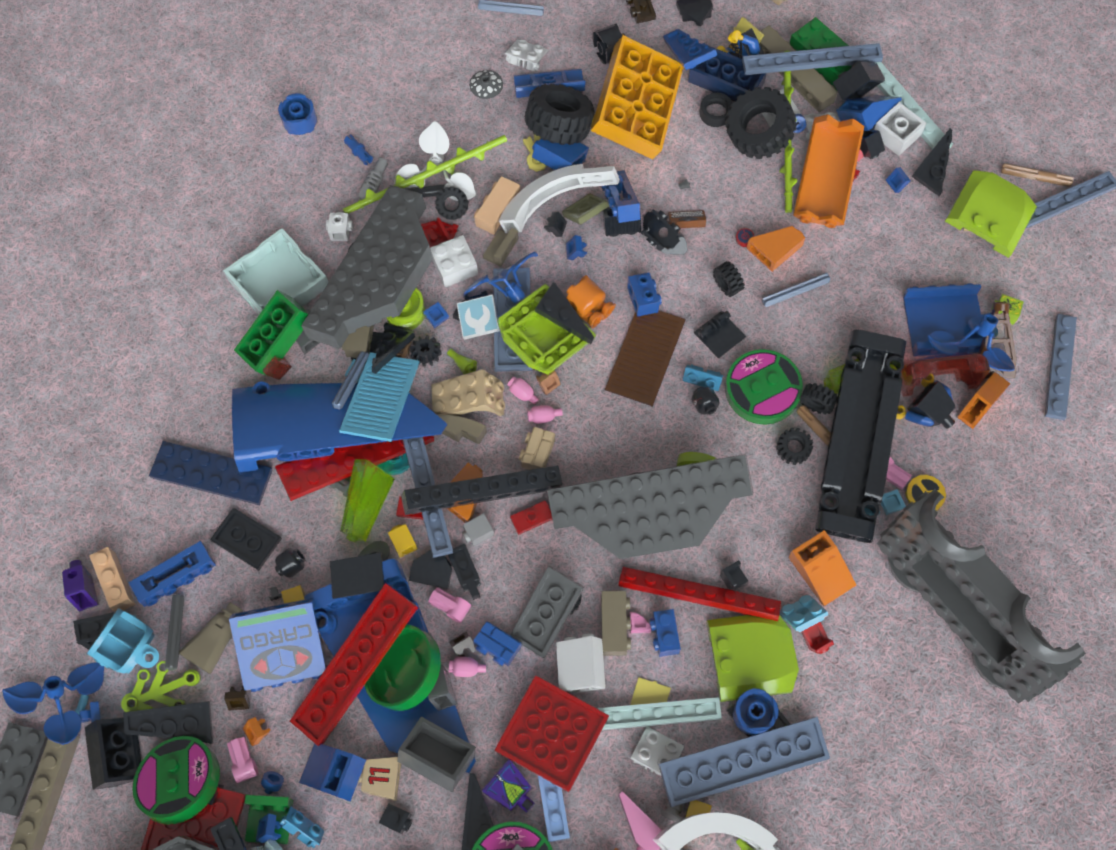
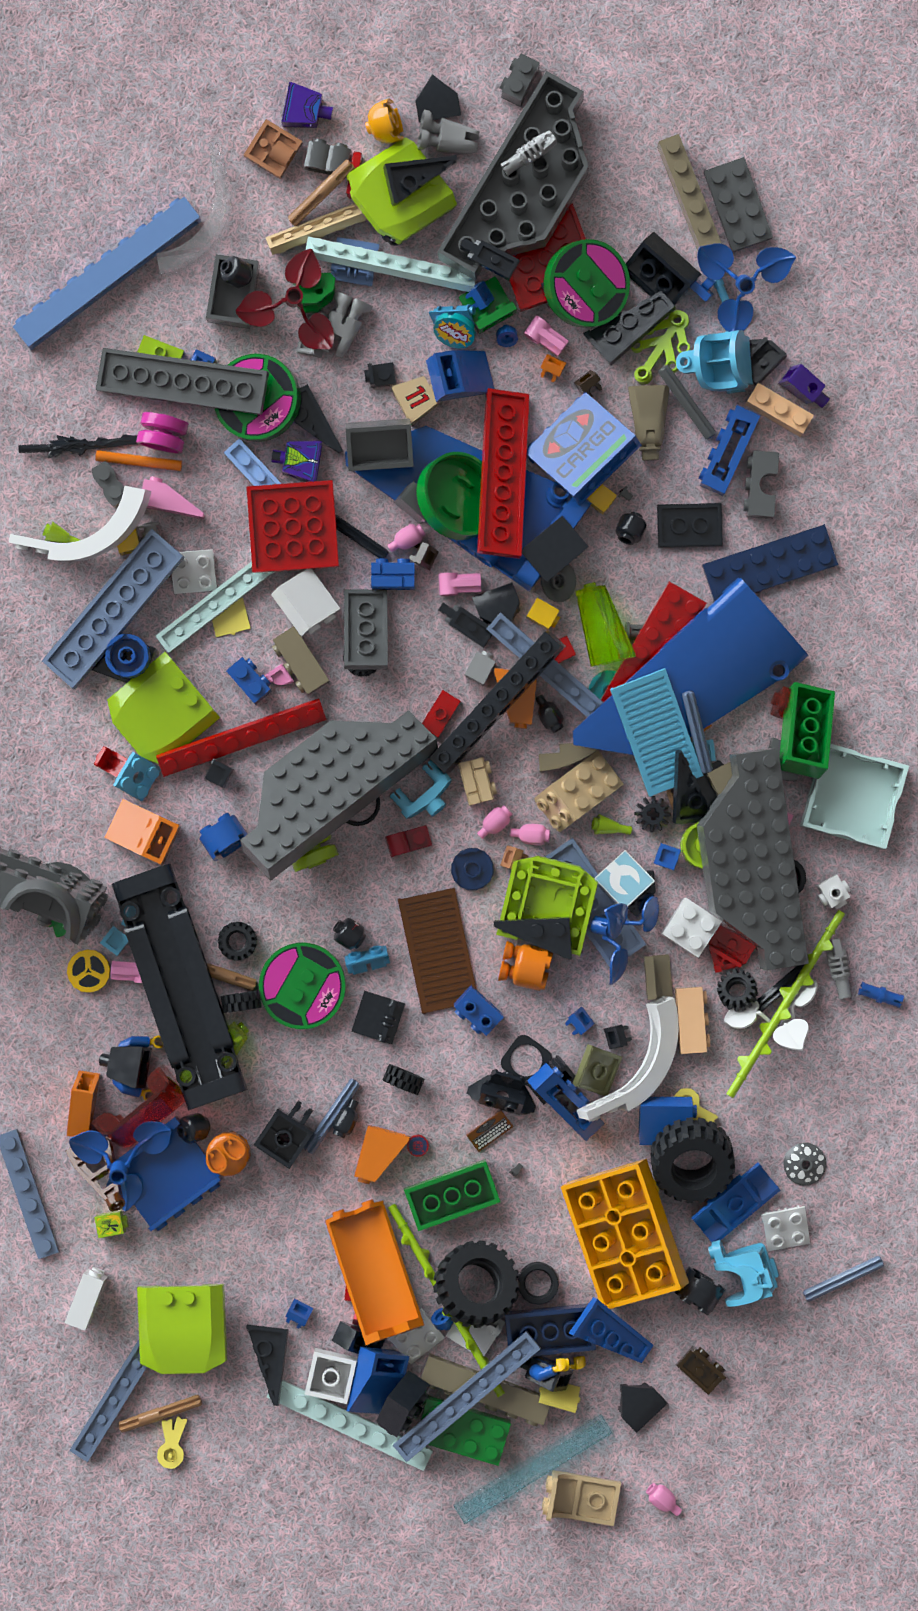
camera: 140 degrees right, 20 degrees up
(182, 521) = (758, 503): none -> dark grey arch
(309, 812) = (454, 330): none -> tile
(450, 464) = (549, 714): none -> black plant
(502, 690) = (360, 538): none -> black axle
(571, 33) = (754, 1268): none -> medium azure animal
(577, 393) = (481, 871): none -> dark blue tile
(582, 458) = (430, 799): none -> medium azure connector
(620, 441) = (408, 841): none -> dark red plate
(624, 262) = (523, 1040): none -> black piece
(741, 189) = (452, 1195): none -> green brick
(760, 523) = (223, 836): none -> blue brick
(787, 279) = (346, 1120): none -> black plant
(792, 12) = (532, 1468): none -> clear light blue tile
(840, 292) = (283, 1123): none -> black hinge
(891, 303) = (228, 1154): none -> orange piece
(909, 333) = (193, 1128): none -> black head
(1041, 148) = (171, 1453): none -> light yellow piece
(1055, 266) = (86, 1298): none -> white brick

